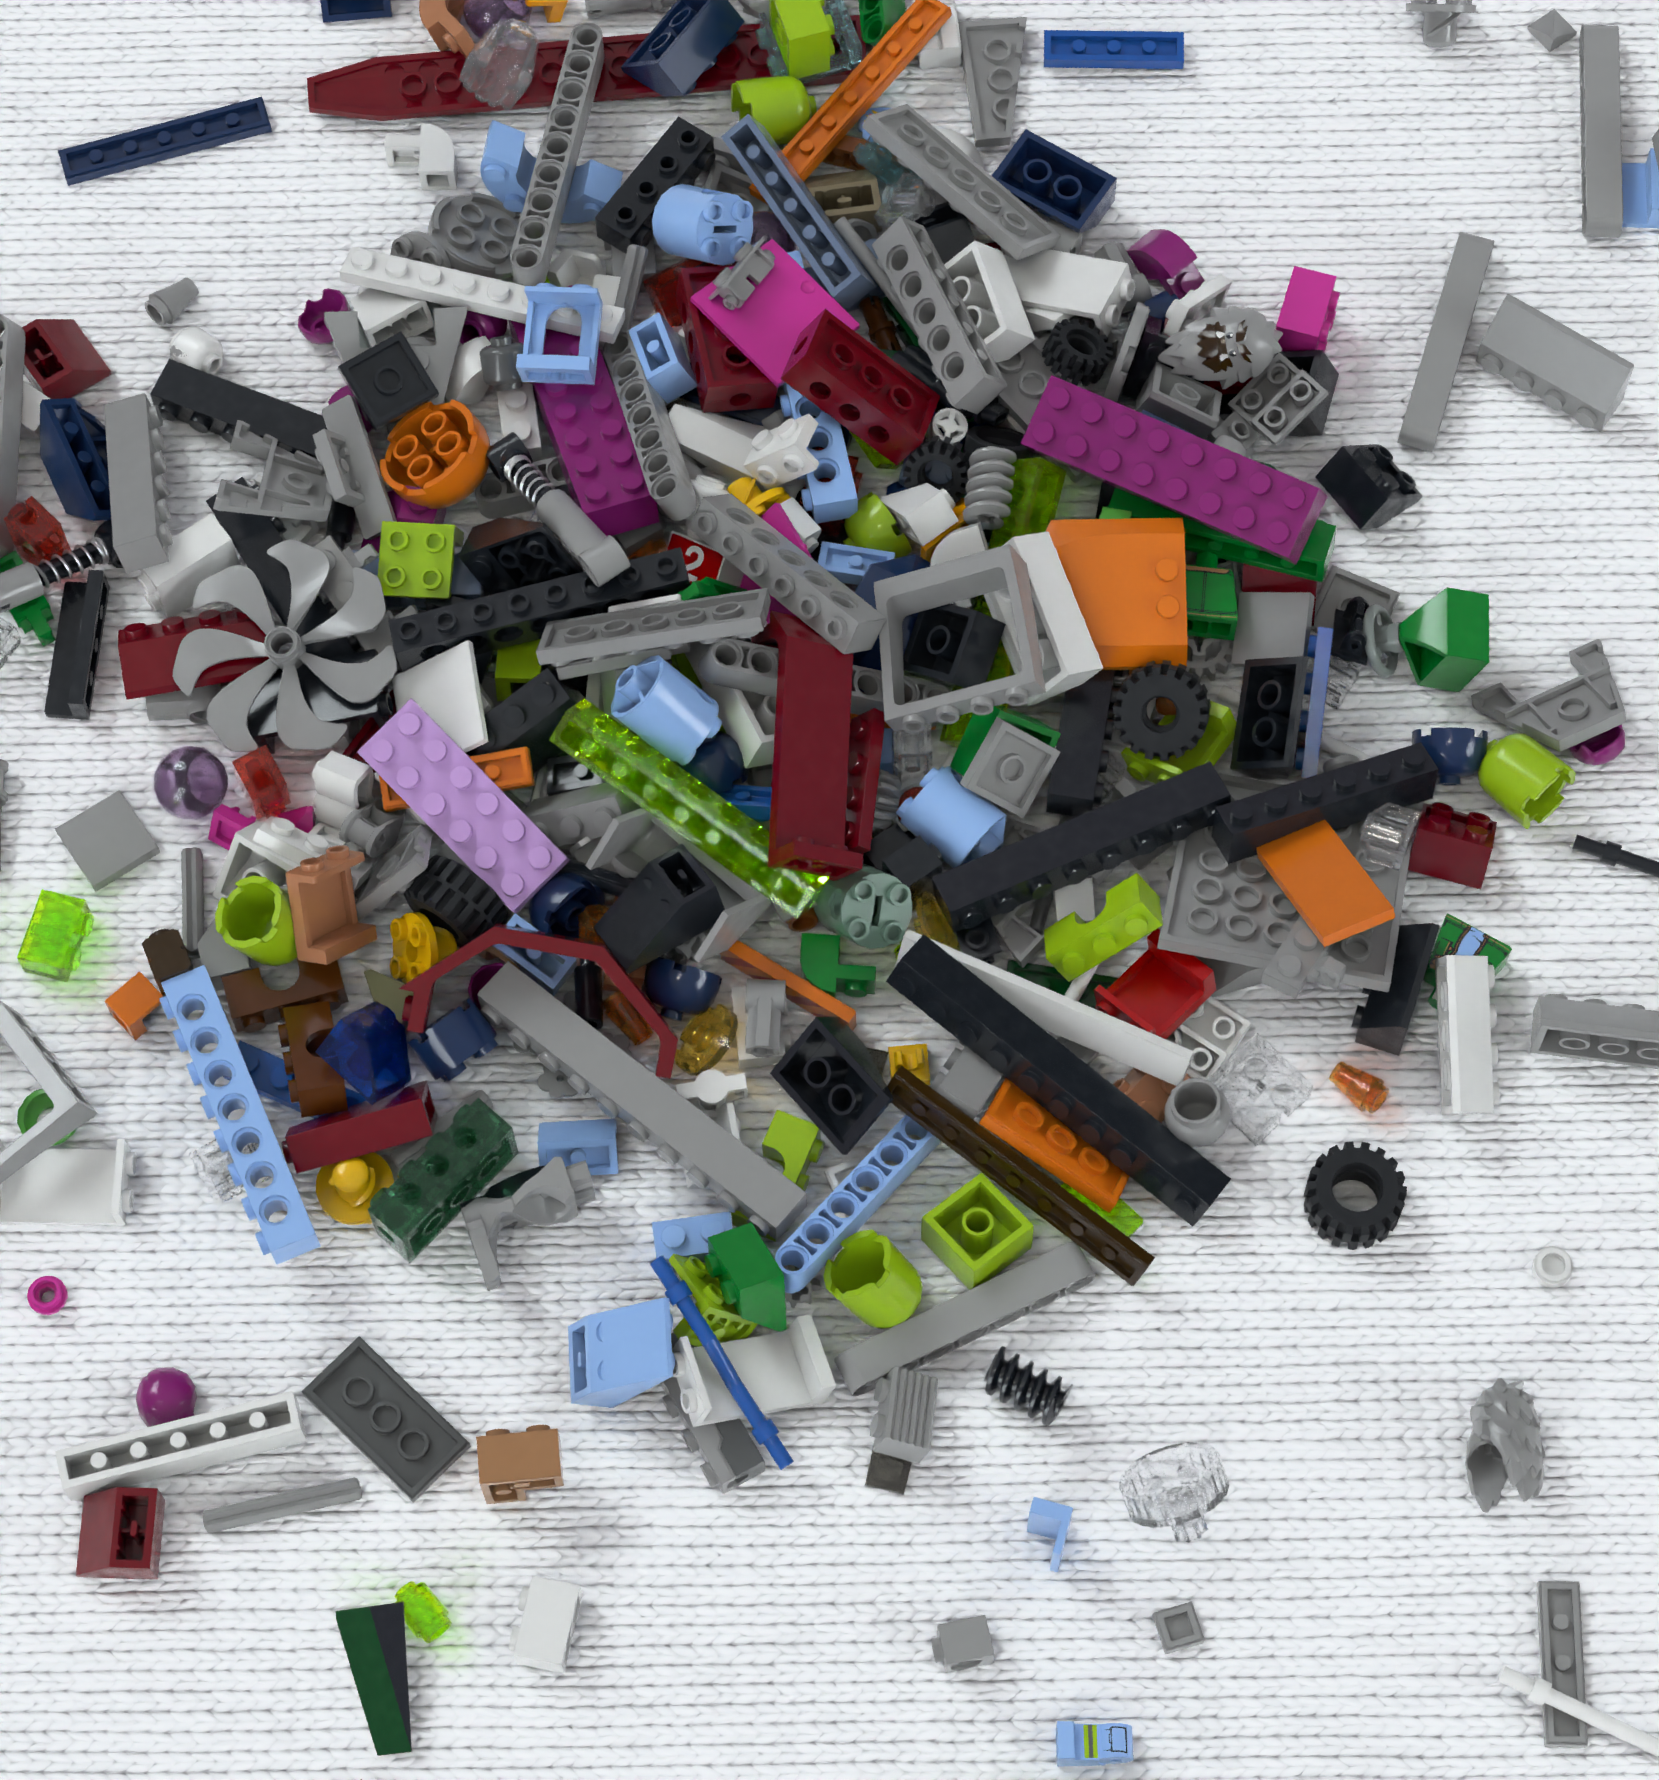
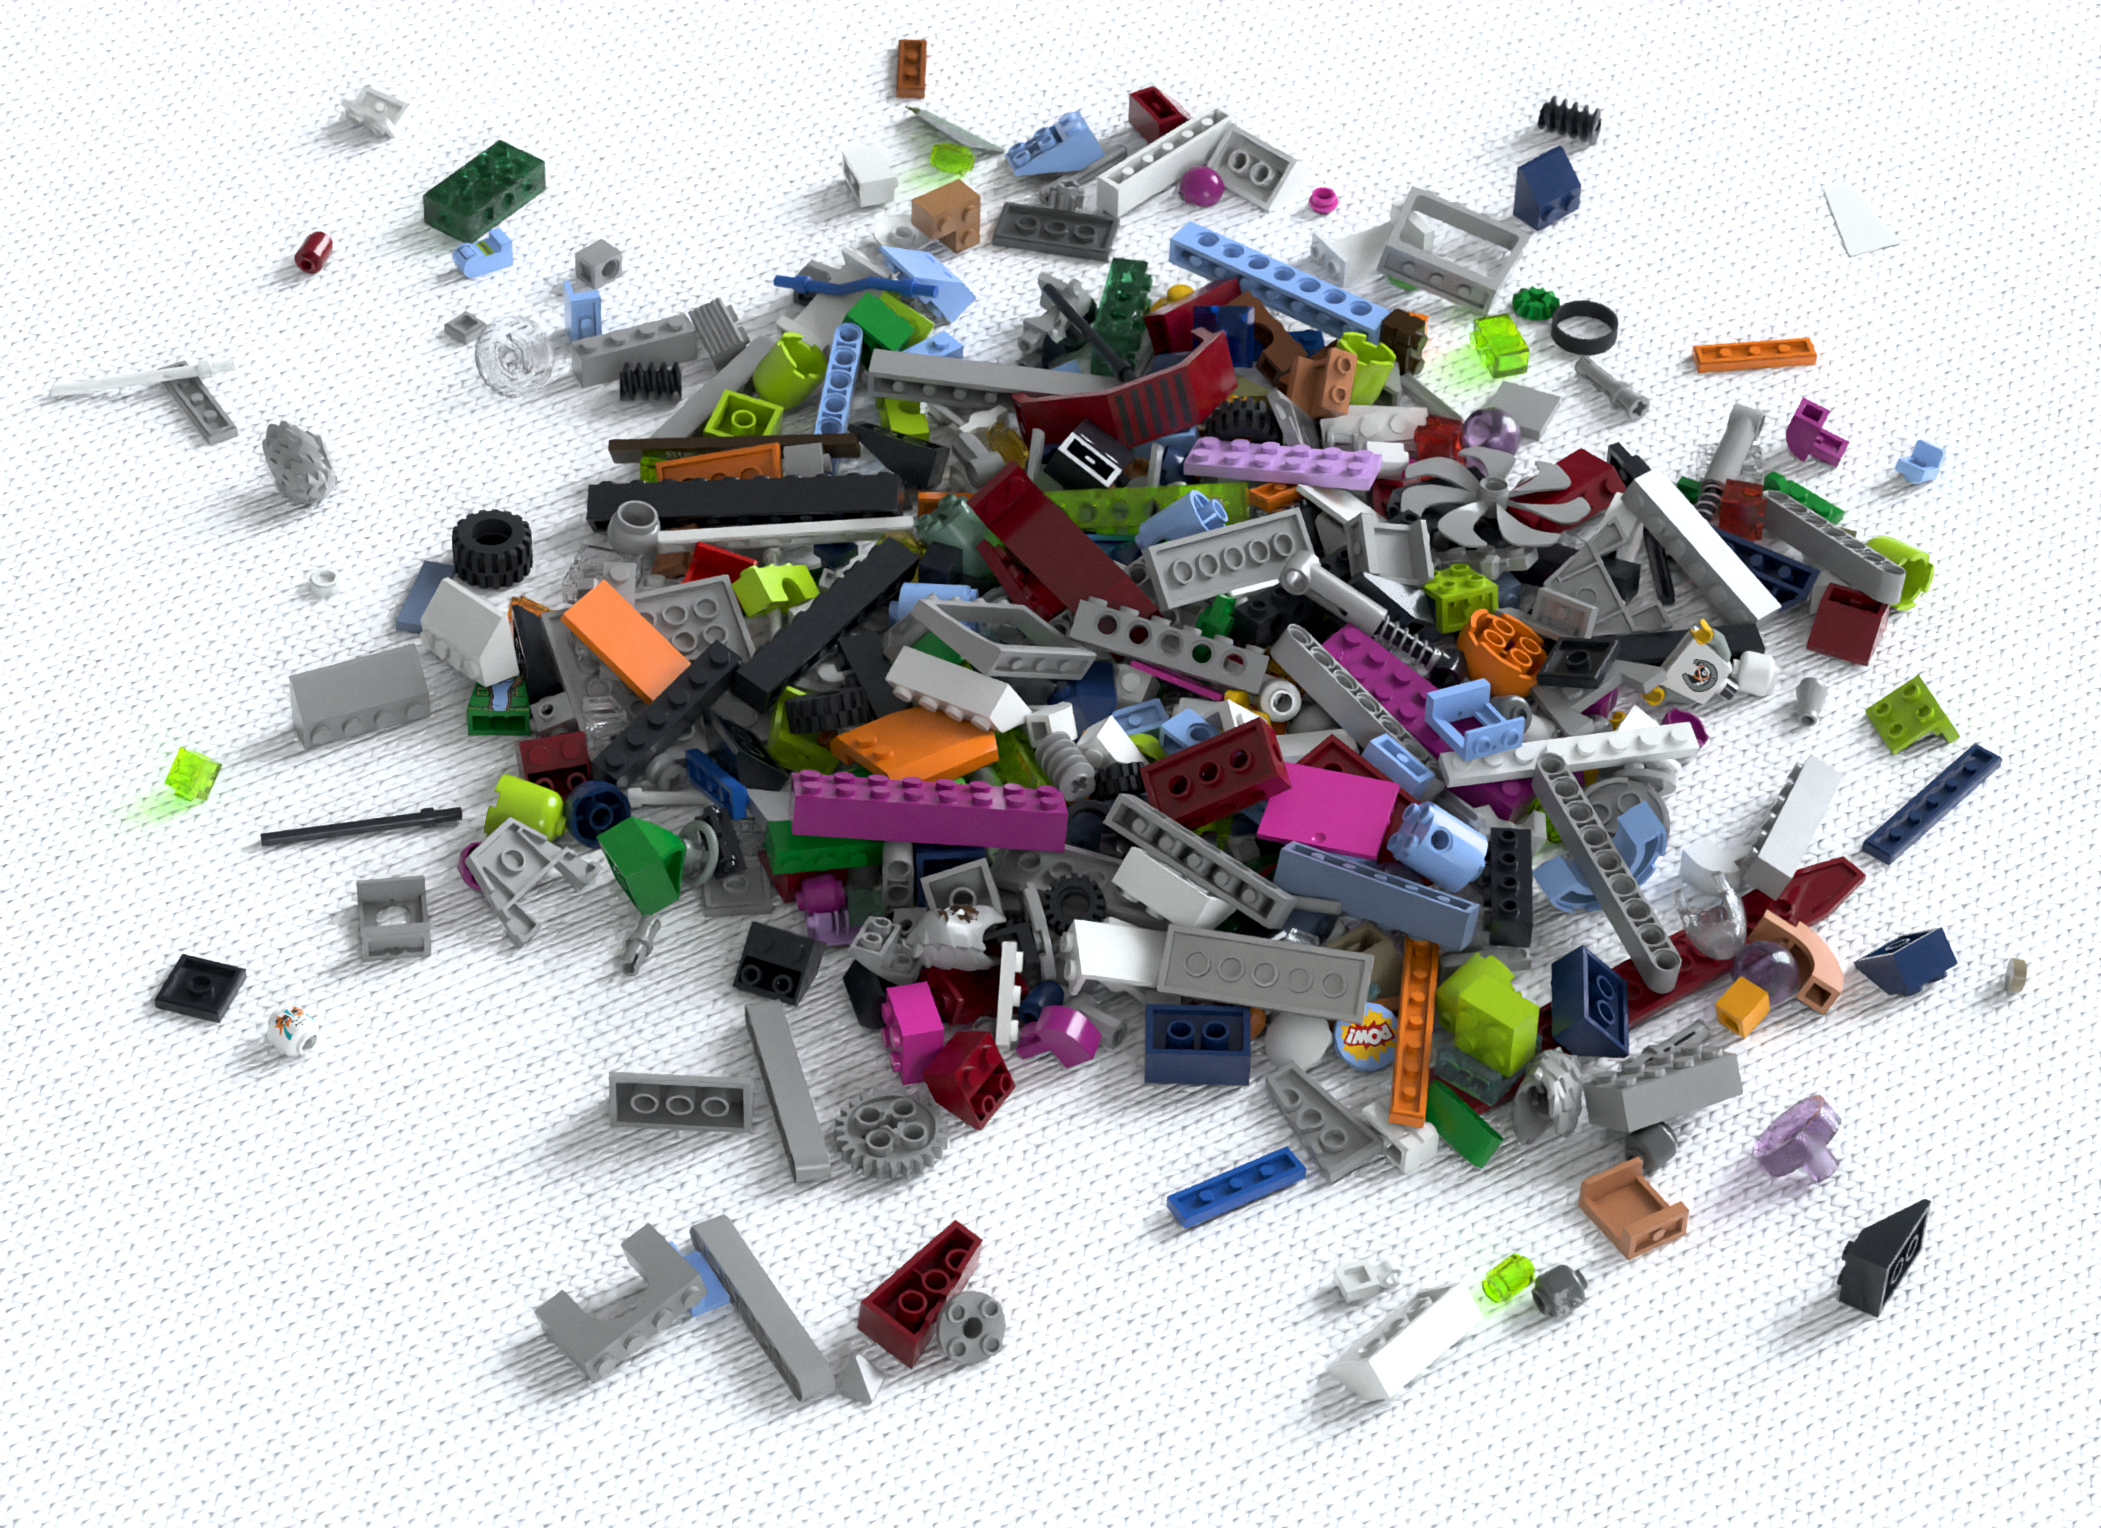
camera: 145 degrees right, 25 degrees down
(82, 1382) = (1257, 169): none -> white slope
(97, 231) = (1909, 715): none -> lime bracket
(130, 587) = (1659, 569): none -> black axle
(265, 368) = (1696, 669): none -> torso
(298, 1543) = (1060, 148): none -> light blue slope
(330, 1455) = (1066, 195): none -> light grey gear
(334, 140) = (1790, 826): none -> brick
(474, 587) = (1390, 550): none -> light grey panel
(529, 1036) = (1120, 367): none -> black bar
(583, 1480) = (898, 232): none -> white dish
(733, 284) = (1371, 807): light grey hinge -> none
(1014, 1452) = (603, 356): none -> light grey brick
(1271, 260) = (969, 1077): none -> dark red slope
(1380, 247) = (891, 1133): none -> light grey gear
(1425, 898) = (553, 716): none -> light grey brick
(1455, 1181) = (421, 595): none -> sand blue tile
(1460, 63) = (906, 1305): none -> dark red wedge
(1490, 579) = (639, 945): none -> light grey pin

